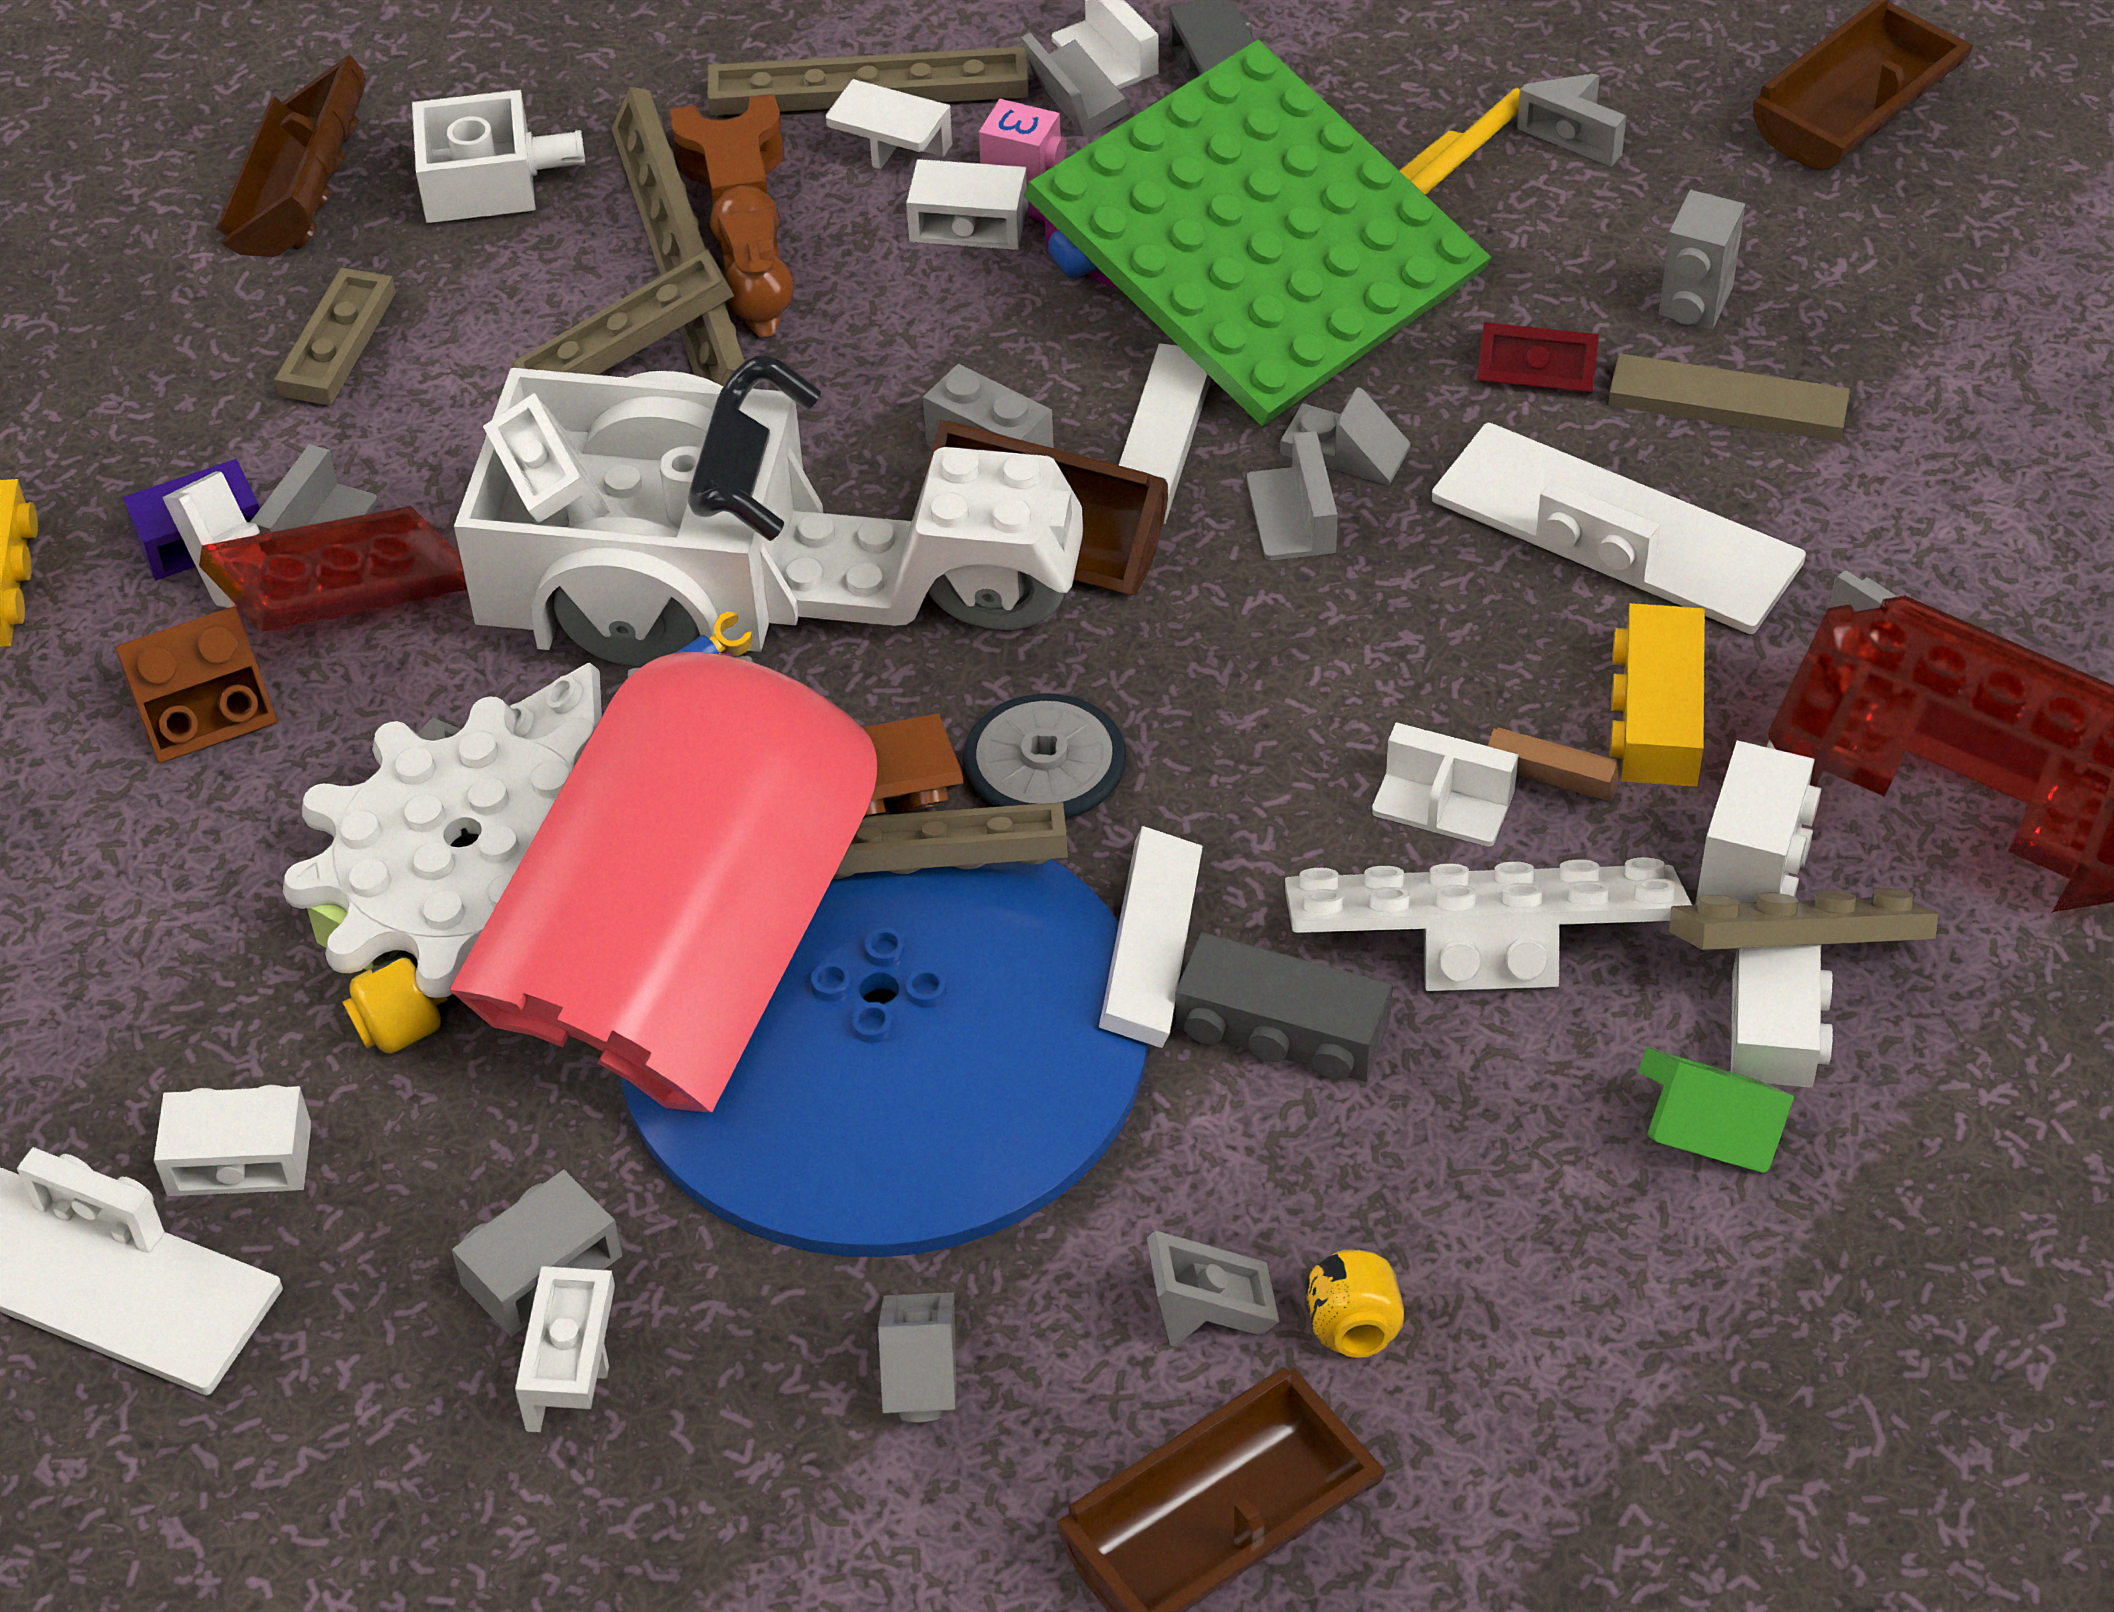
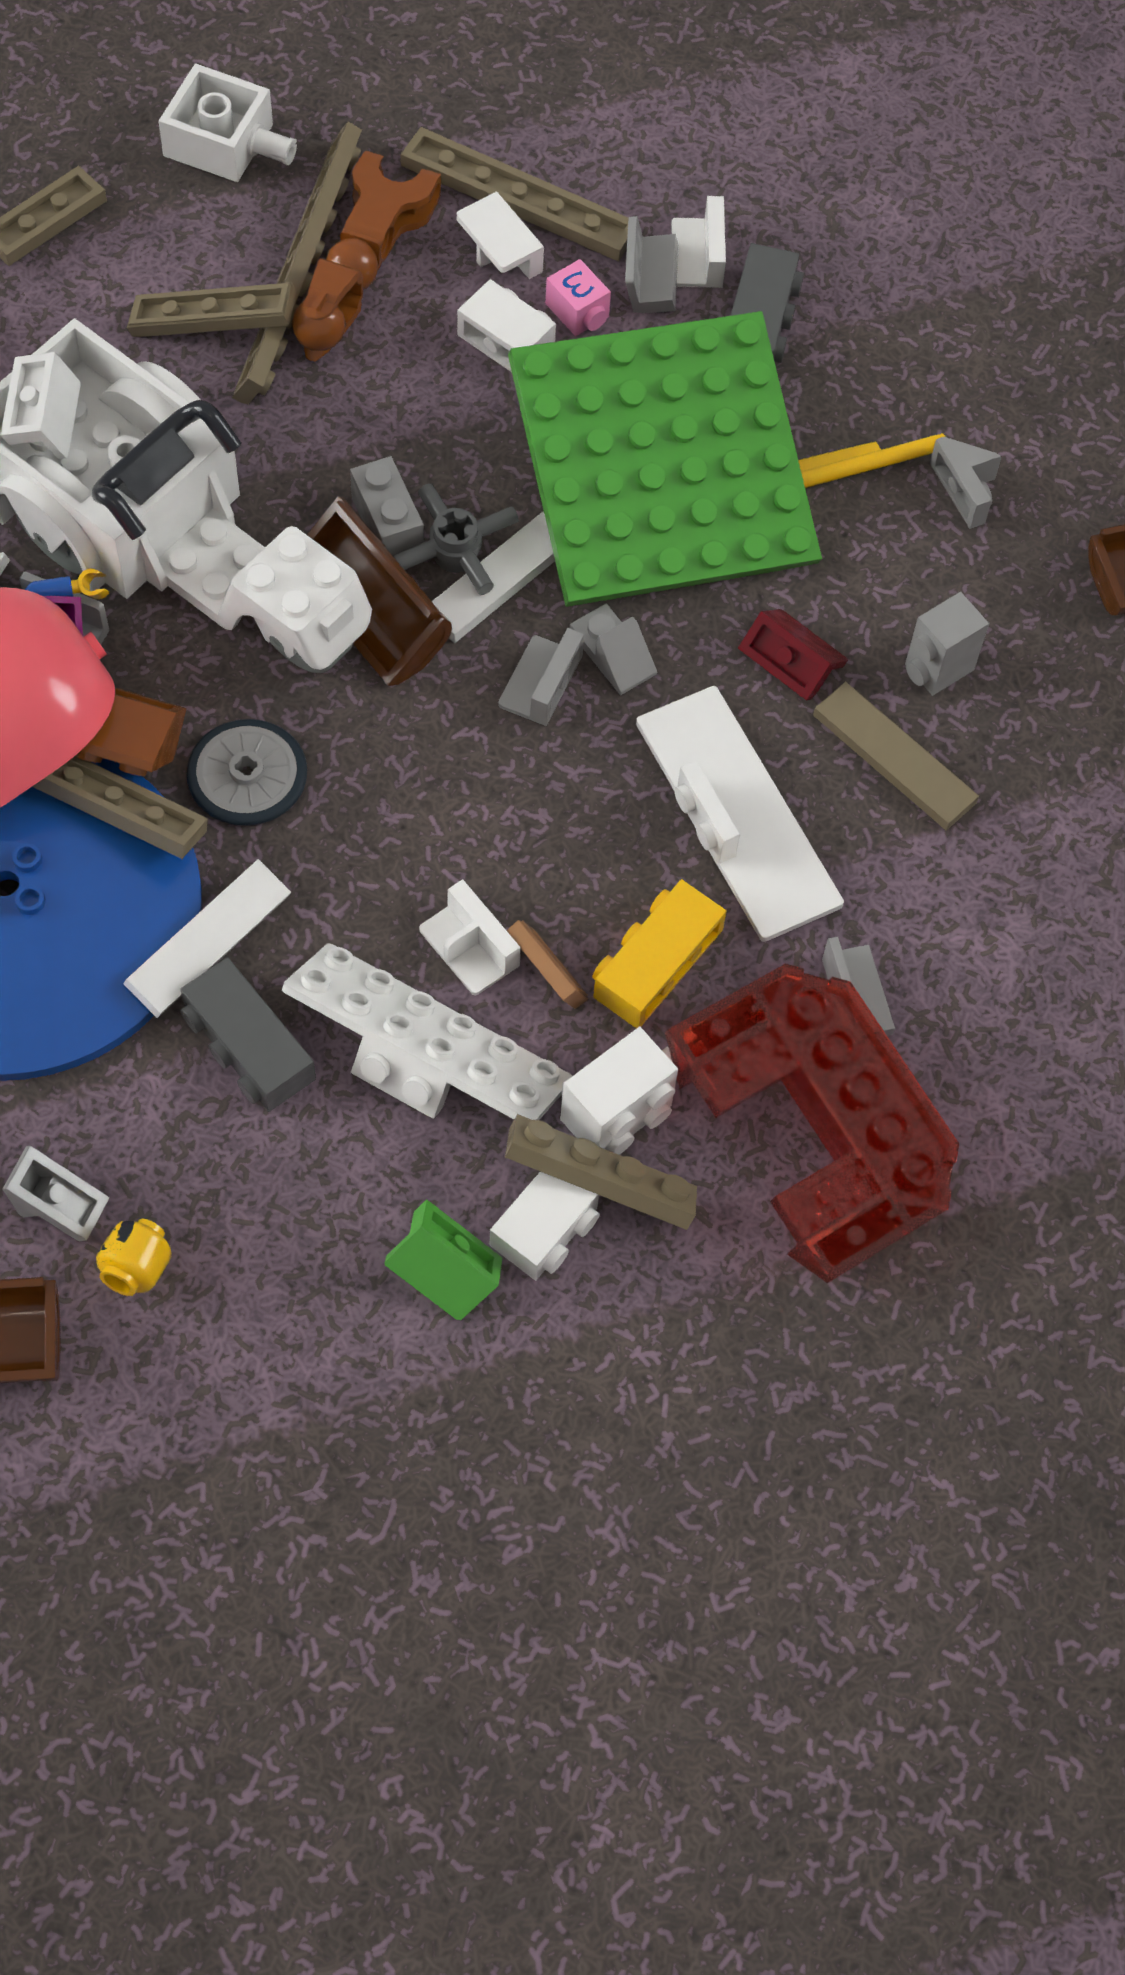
camera: 25 degrees right, 15 degrees up
(292, 163) = (104, 65): reddish brown container -> none
(1092, 414) = (449, 527): none -> dark grey bar

